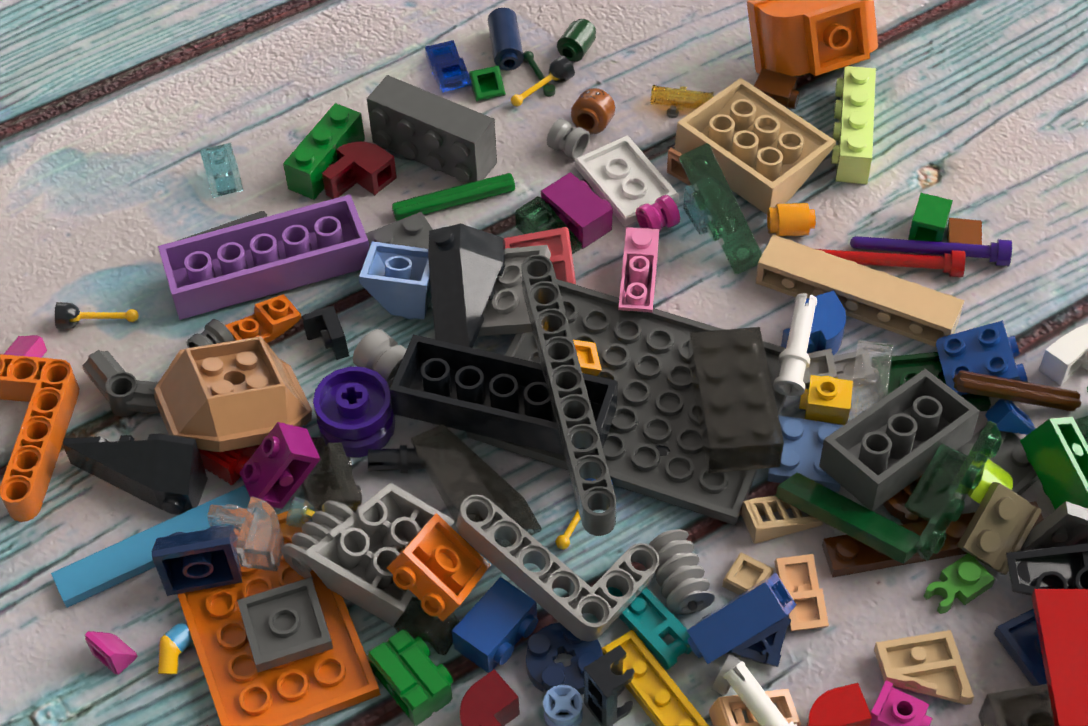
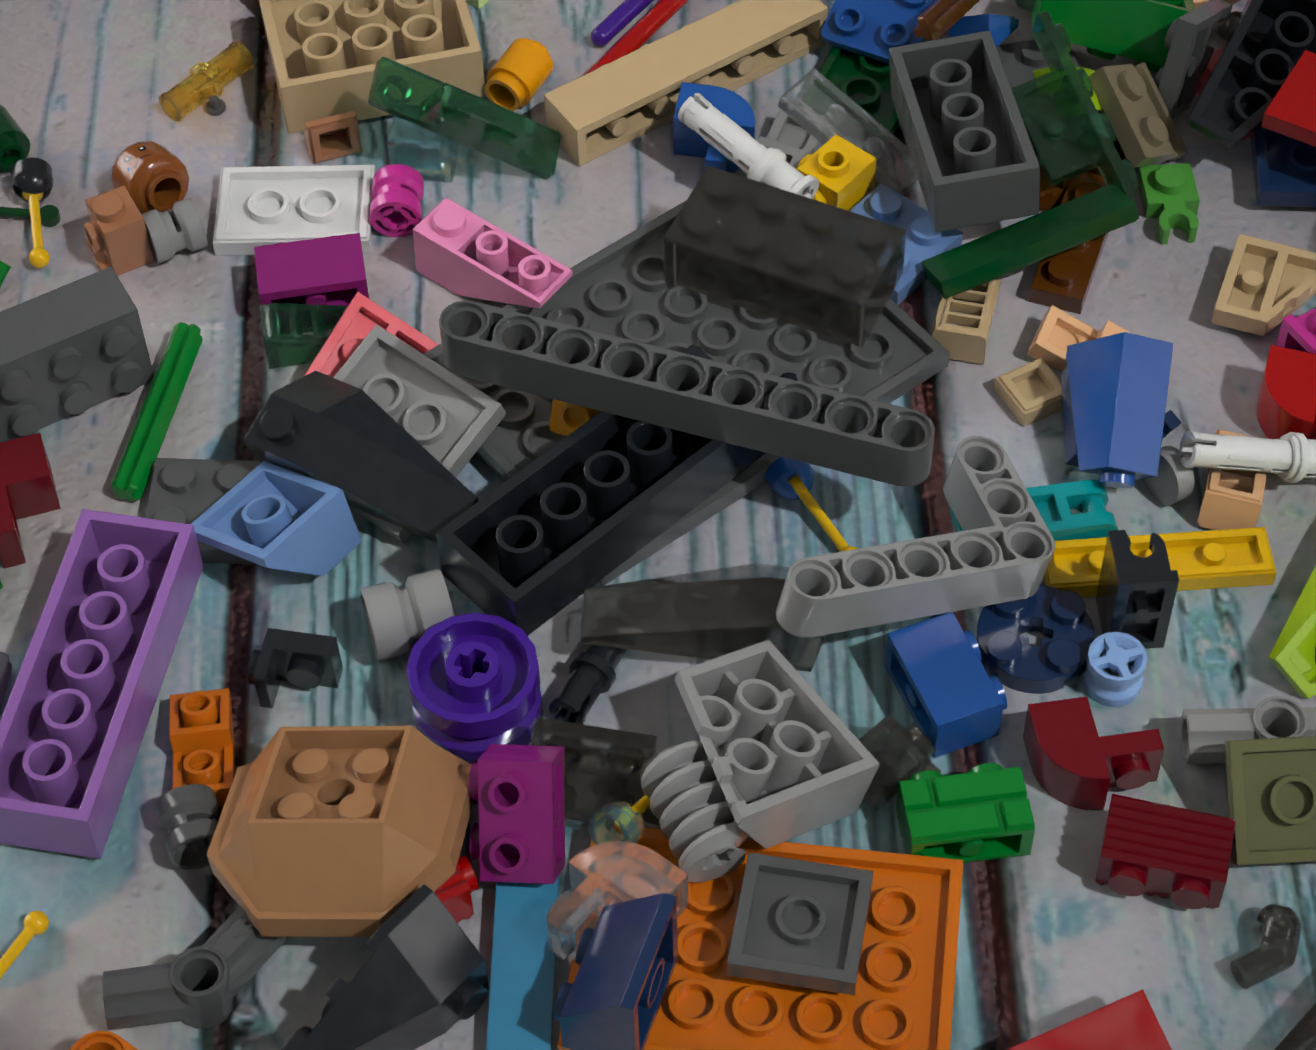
camera: 60 degrees left, 0 degrees up
(438, 568) = (851, 684): orange plate -> none
(545, 113) = (117, 232): none -> nougat brick
(679, 574) = (1026, 450): light grey piece -> none

